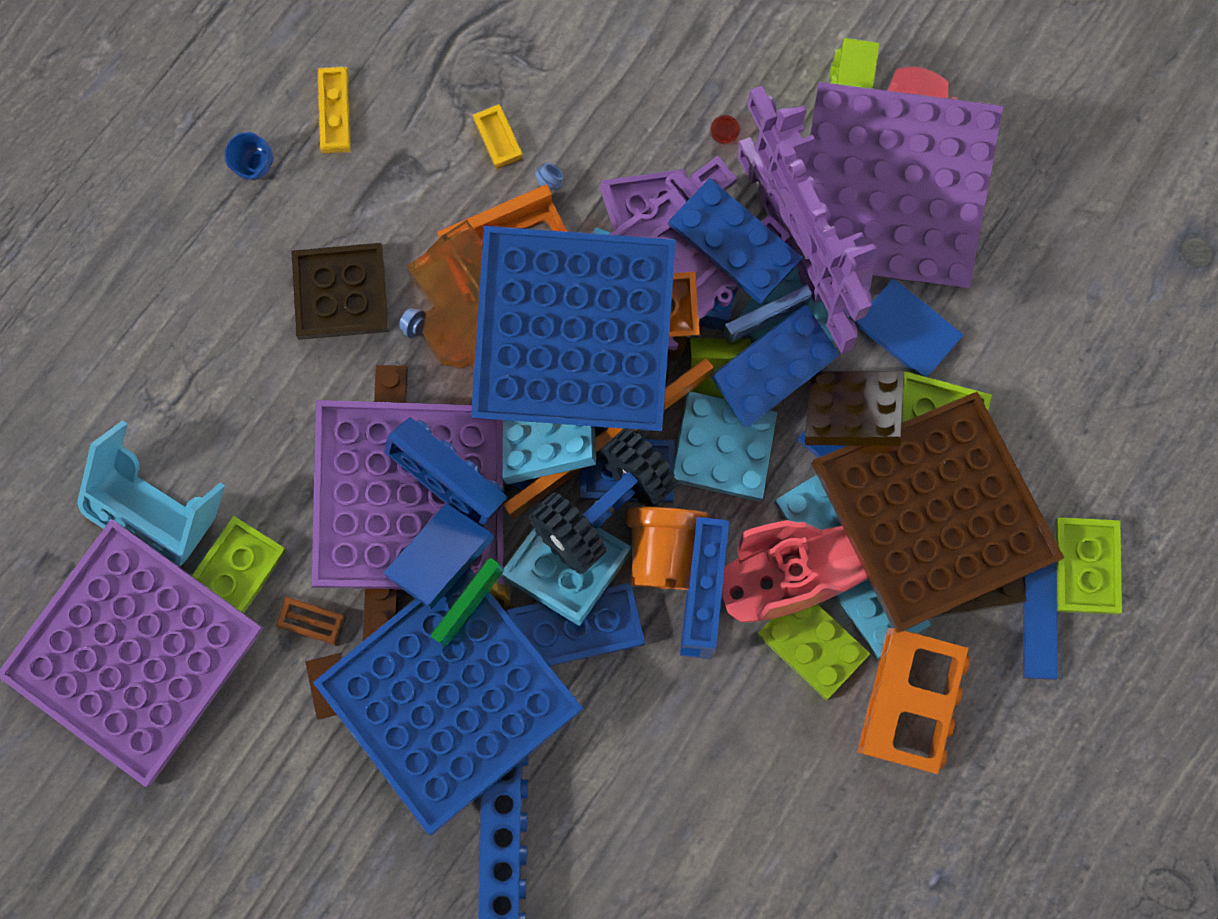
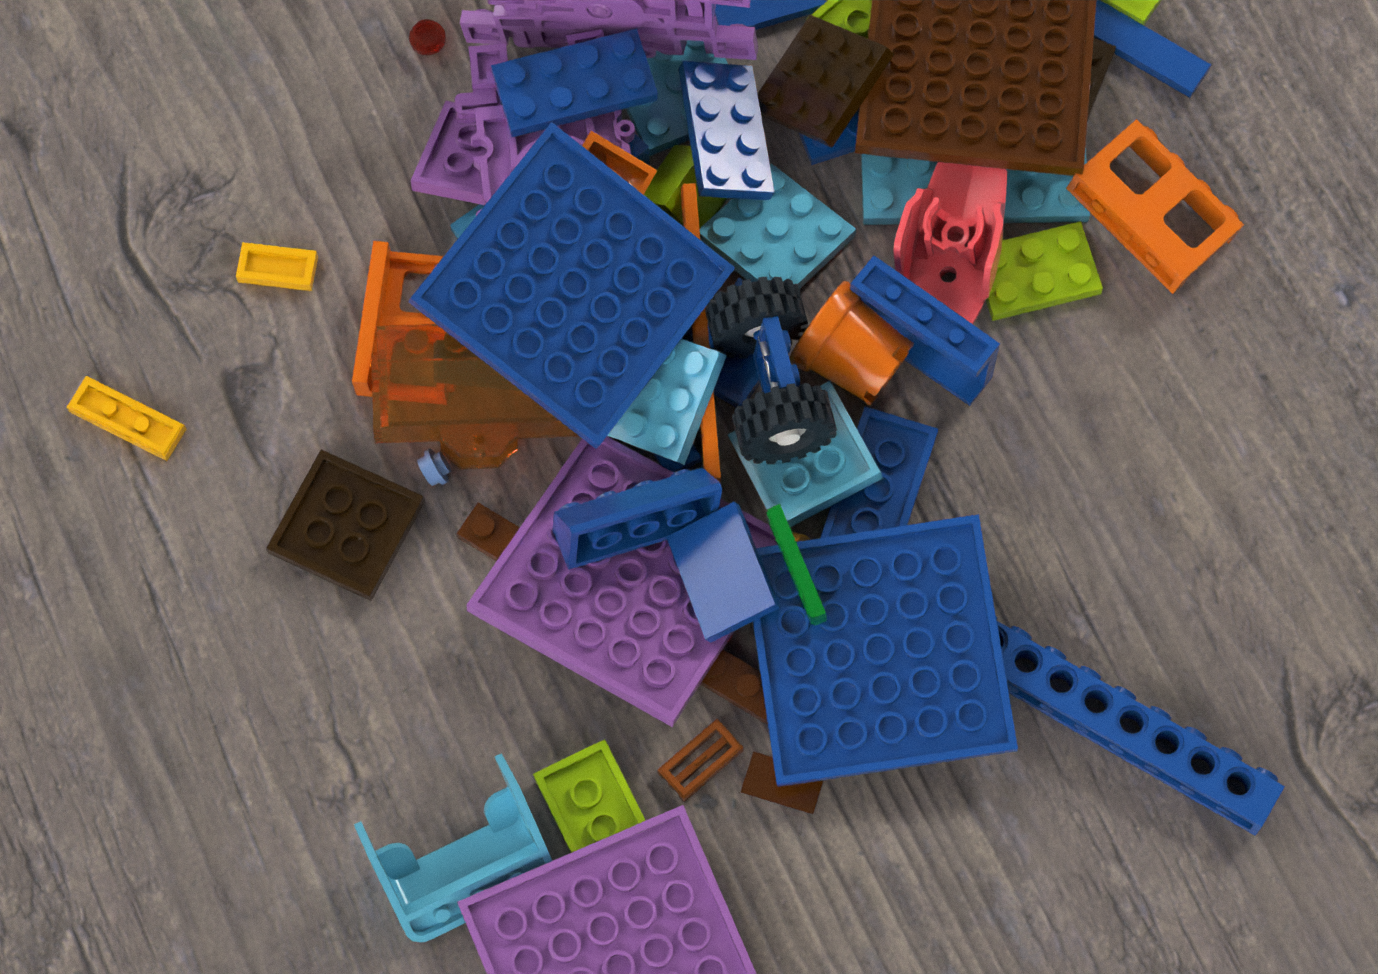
camera: 55 degrees left, 5 degrees down
(248, 156) = (123, 532): blue hair -> none
(549, 175) = (361, 237): medium blue plate -> none
(767, 314) = (666, 106): medium blue tile -> none

